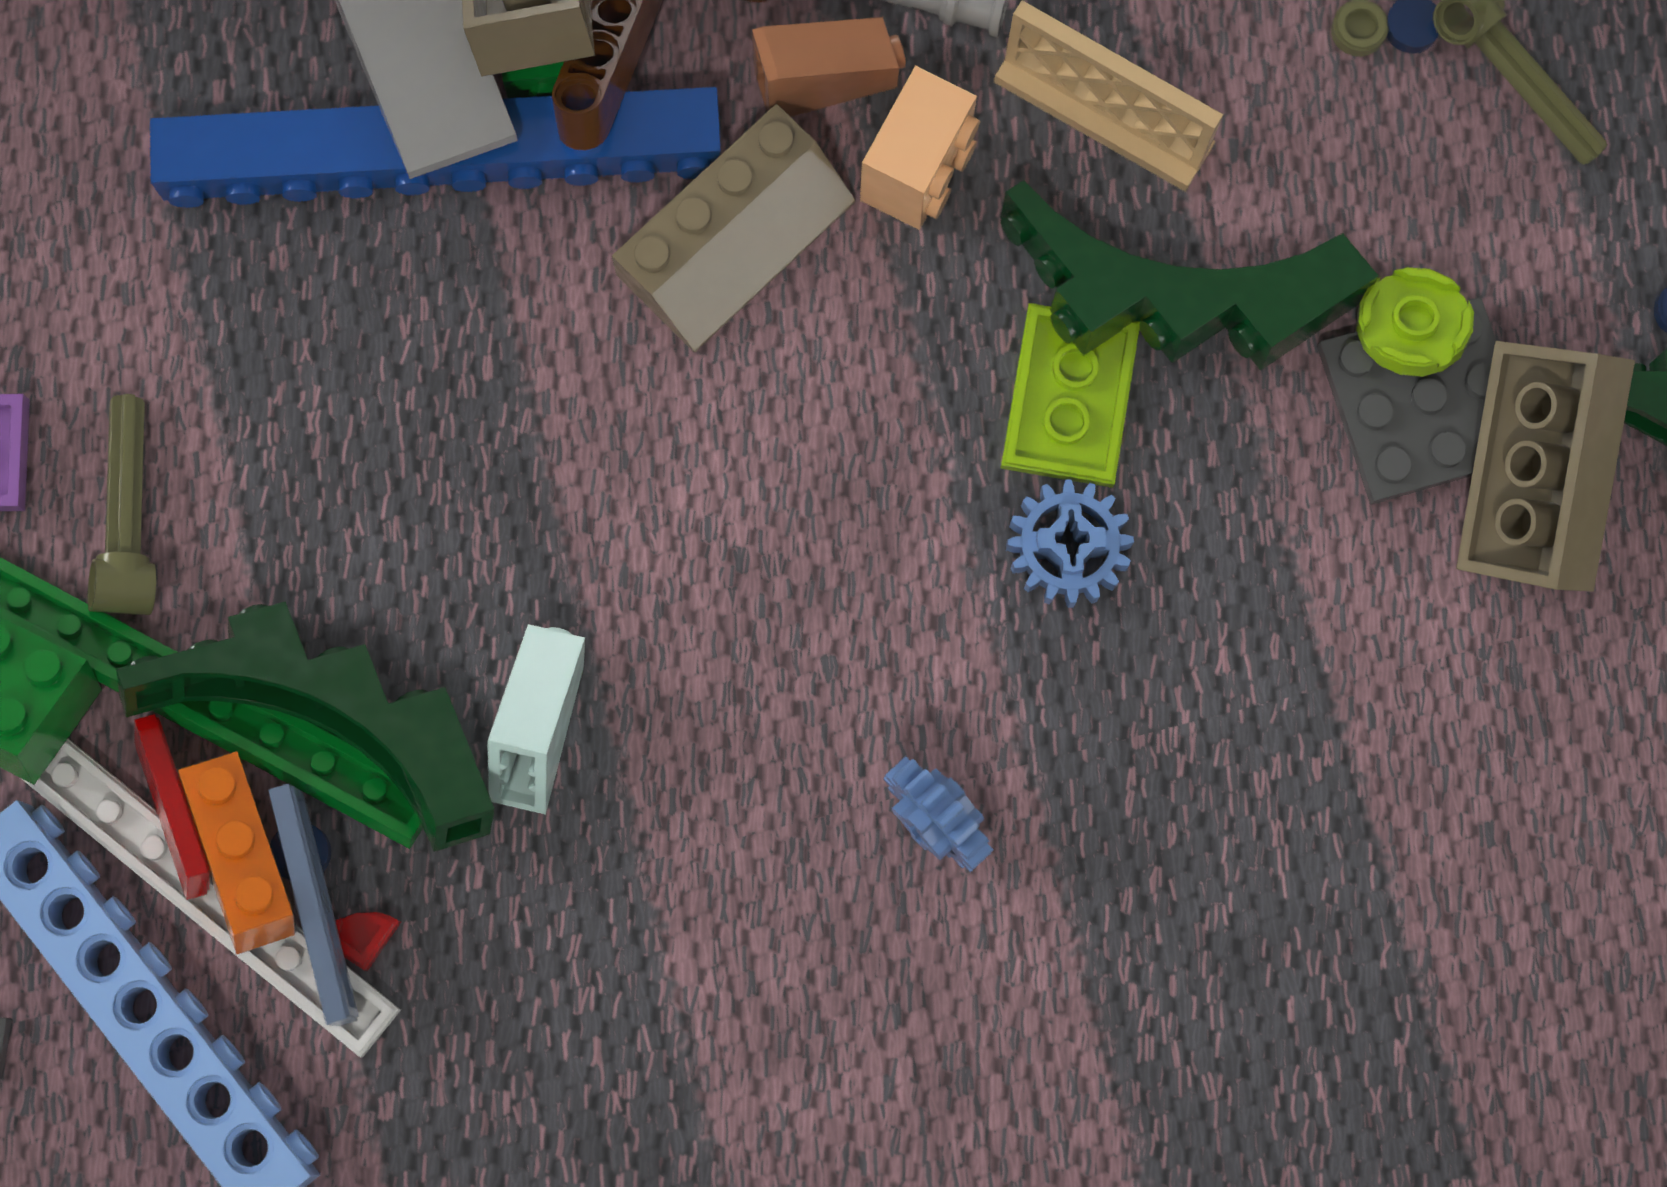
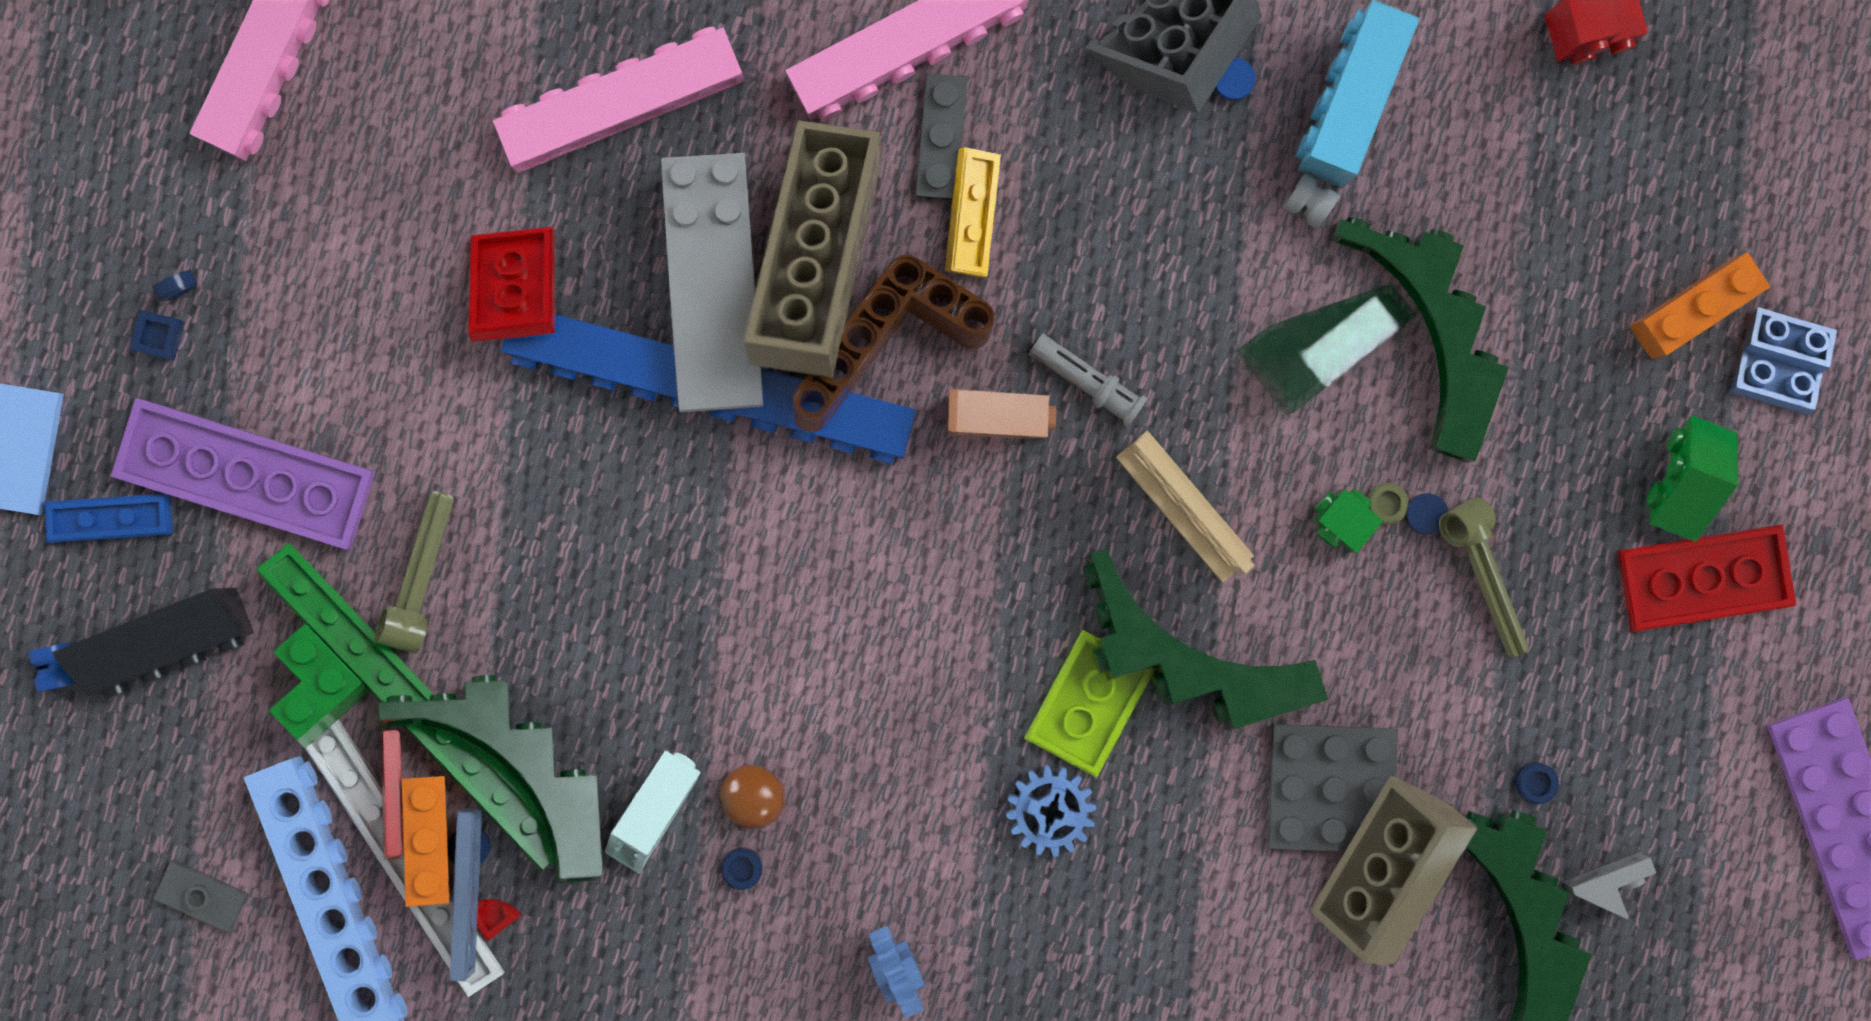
camera: 25 degrees right, 10 degrees up
(141, 97) = (512, 284): none -> red tile
(666, 659) = (752, 796): none -> dark orange hair
(682, 759) = (742, 868): none -> dark blue tile
(733, 228) = (895, 512): dark tan slope -> none
(919, 148) = (1042, 502): light nougat brick -> none
(1315, 57) = (1345, 519): none -> green brick
(1414, 322) = (1343, 737): lime tile -> none

